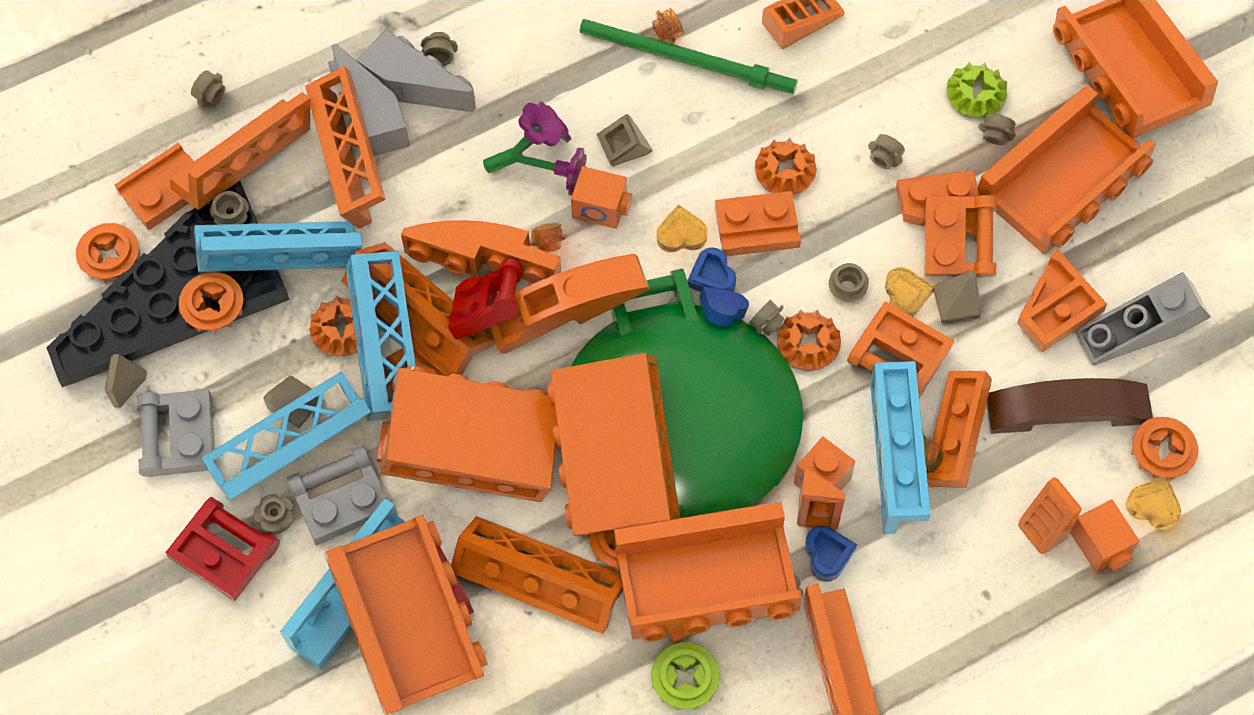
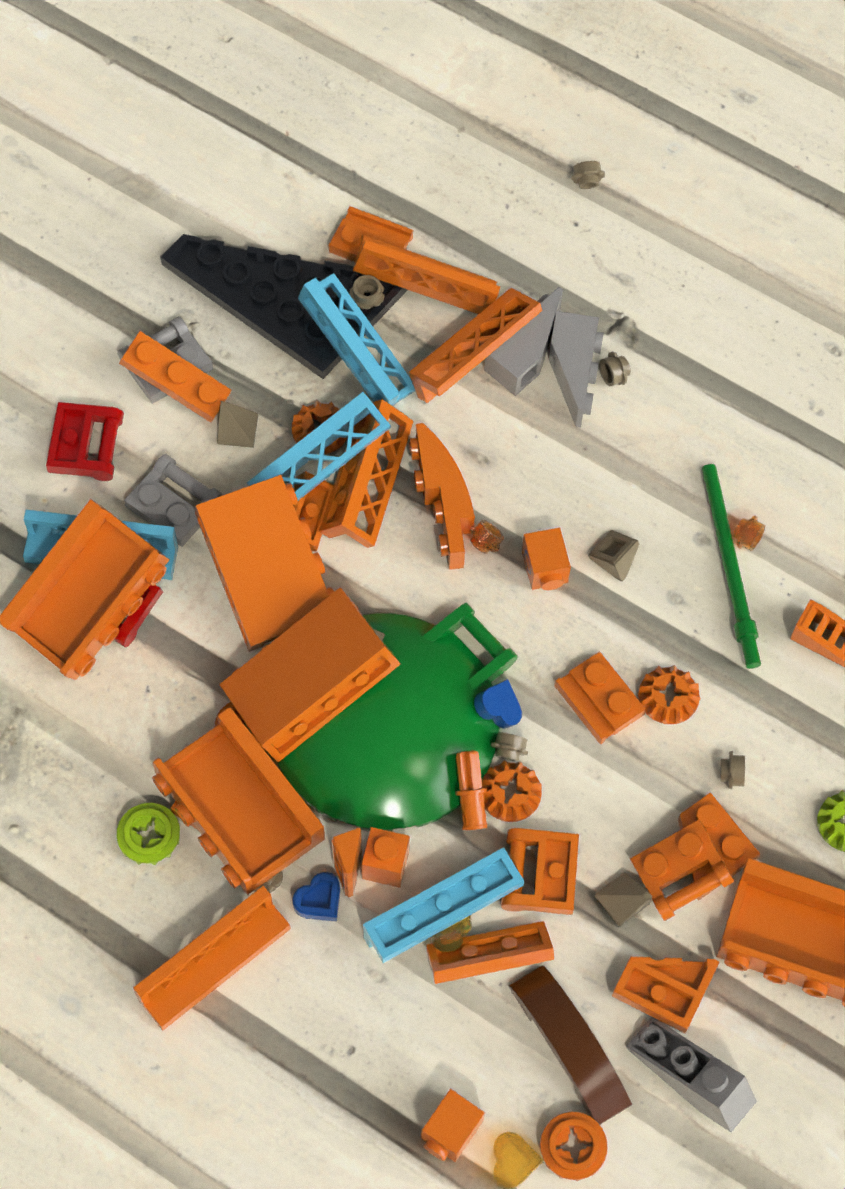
camera: 60 degrees right, 0 degrees up
(106, 237) = (277, 228): orange gear -> none
(123, 379) = (186, 299): dark tan slope -> none
(205, 427) = (175, 376): none -> orange plate
(208, 88) = (474, 224): dark tan plate -> none
(215, 286) = (273, 310): orange gear -> none
(277, 523) = (135, 470): dark tan plate -> none
(293, 449) = (191, 446): medium azure fence -> none
(477, 302) = (391, 514): red plate -> none
(535, 576) = (173, 673): orange fence -> none
(540, 126) = (567, 474): magenta plant -> none
(570, 296) = (430, 576): orange slope -> none
(681, 230) = (556, 639): clear yellow tile -> none
(712, 271) = (530, 683): blue tile -> none
(798, 369) = (471, 790): none -> orange axle
(852, 273) = (588, 788): dark tan plate -> none
(907, 290) = (604, 852): clear yellow tile -> none
(997, 129) = (816, 856): dark tan plate -> none
(1050, 516) = (440, 1067): orange slope -> none

